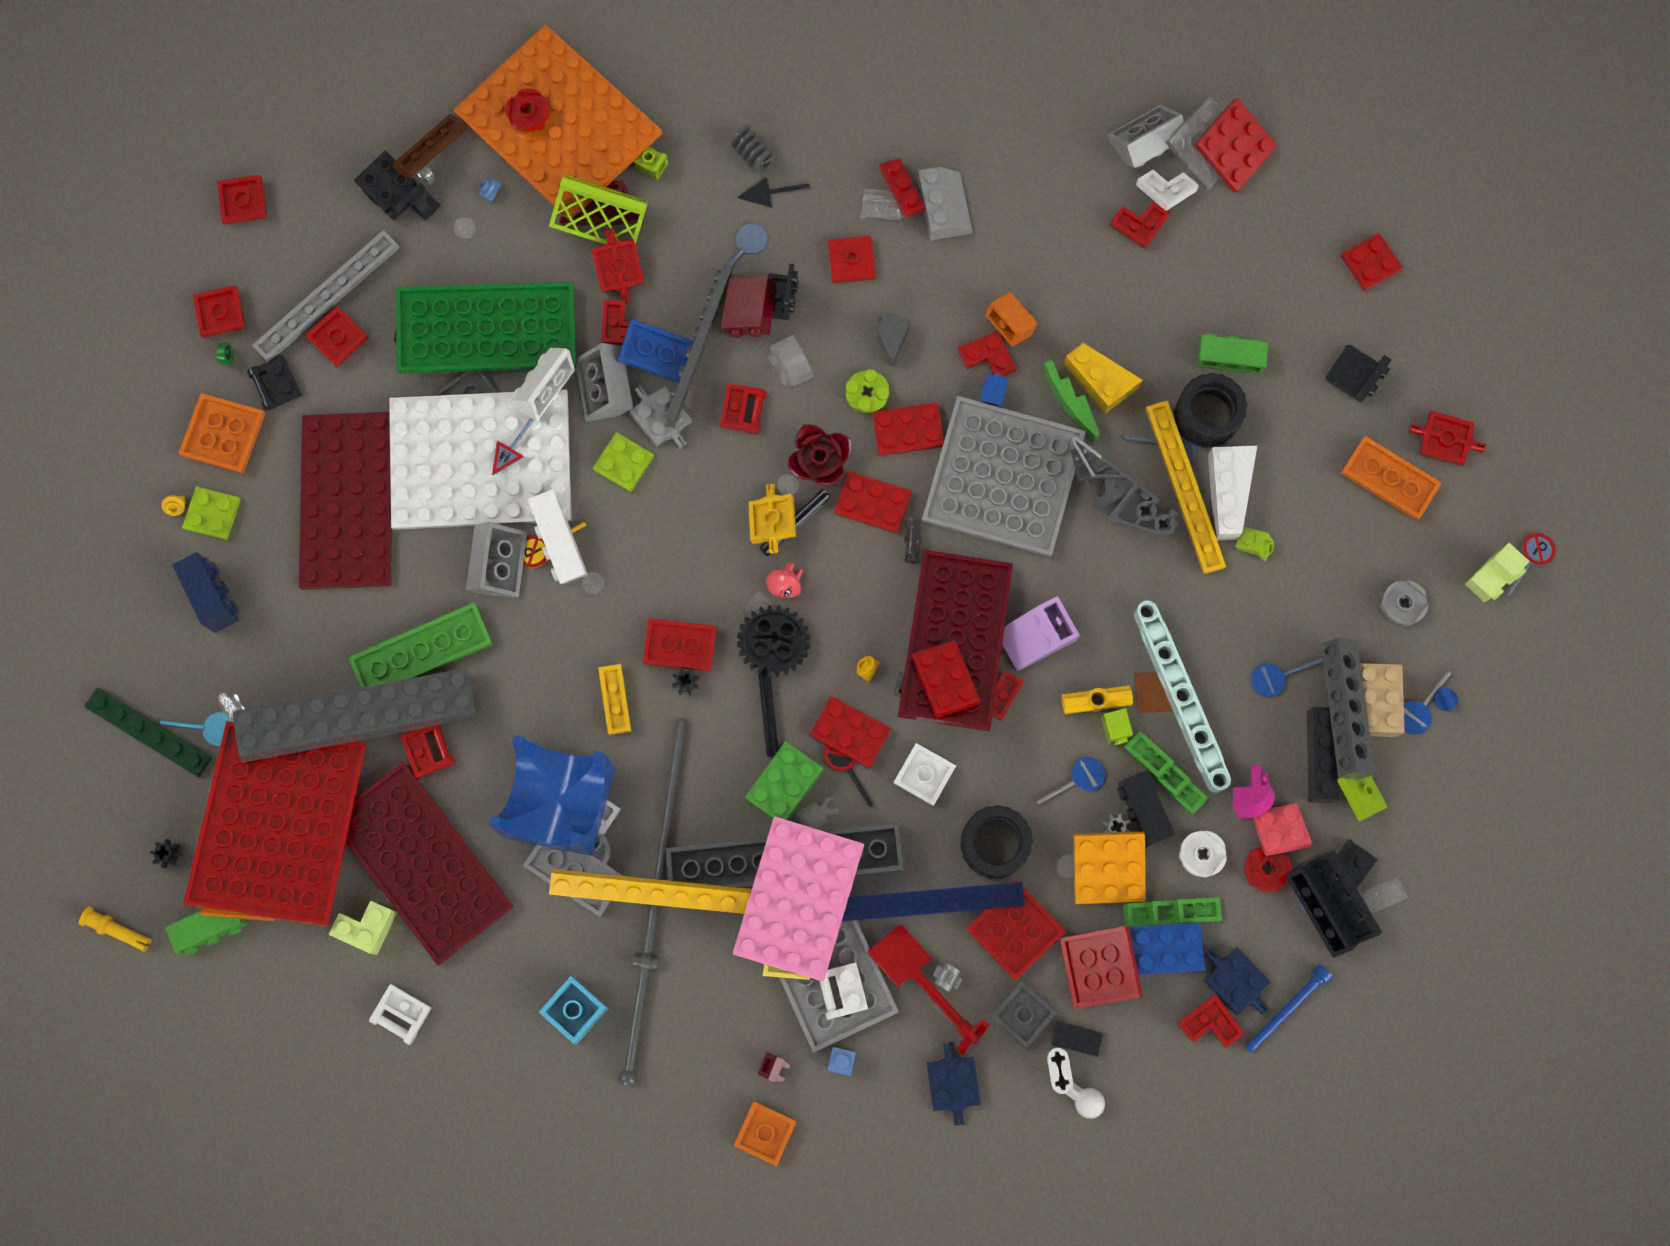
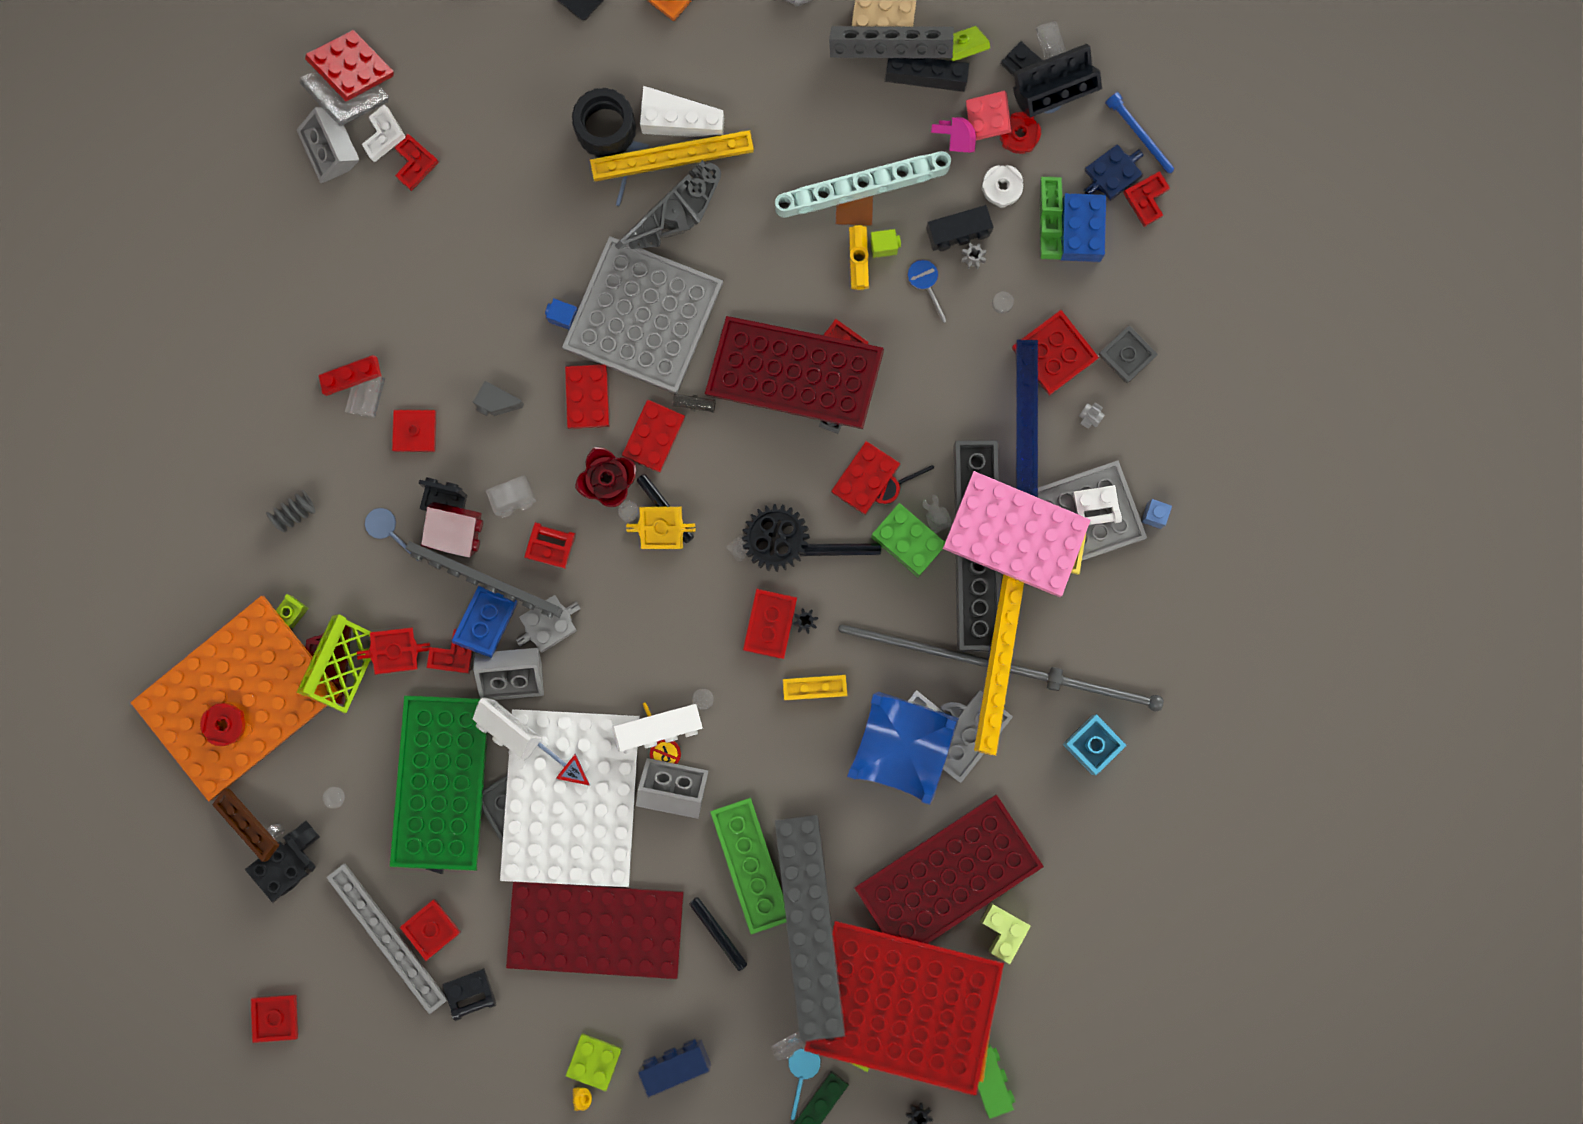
camera: 85 degrees left, 5 degrees up
(219, 311) = (389, 1046): red plate -> none
(222, 433) = (515, 1048): orange plate -> none
(224, 354) = (434, 1042): green tile -> none
(347, 625) = (718, 934): none -> black axle
(404, 1007) = (1078, 899): white plate -> none
(420, 753) = (848, 871): red plate -> none
(489, 189) = (296, 771): medium blue plate -> none
(623, 462) = (588, 662): lime plate -> none
(761, 194) = (335, 510): black piece -> none
(765, 1133) = (1212, 586): orange plate -> none
(771, 1067) = (1156, 575): dark red tile -> none
(784, 582) = (723, 522): coral piece -> none
(867, 667) = (808, 456): yellow plate -> none
(871, 380) = (536, 425): lime plate -> none
(902, 959) = (1073, 453): red piece -> none
(924, 774) = (910, 416): white plate -> none
(944, 203) = (370, 337): light grey slope -> none
(945, 679) = (833, 382): red plate -> none
(953, 1083) = (1181, 420): dark blue plate -> none
(989, 349) = (518, 315): red plate -> none
(1011, 319) = (494, 289): orange brick -> none
(1019, 825) = (985, 335): black tyre -> none
(1038, 634) = (794, 299): lavender slope -> none
(1075, 407) = (587, 242): bright green slope -> none
(1077, 1038) = (1151, 312): black tile -> none
(1088, 1101) = (1206, 308): white beam -> none
(1101, 377) = (560, 216): yellow wedge -> none
(1101, 967) = (1095, 282): red plate -> none
(1109, 867) = (1009, 265): light orange plate -> none
(1166, 773) = (929, 207): bright green slope -> none
(1232, 353) = (551, 97): bright green brick -> none
(1255, 542) = (730, 102): lime bracket -> none
(1270, 680) = (853, 109): blue piece -> none

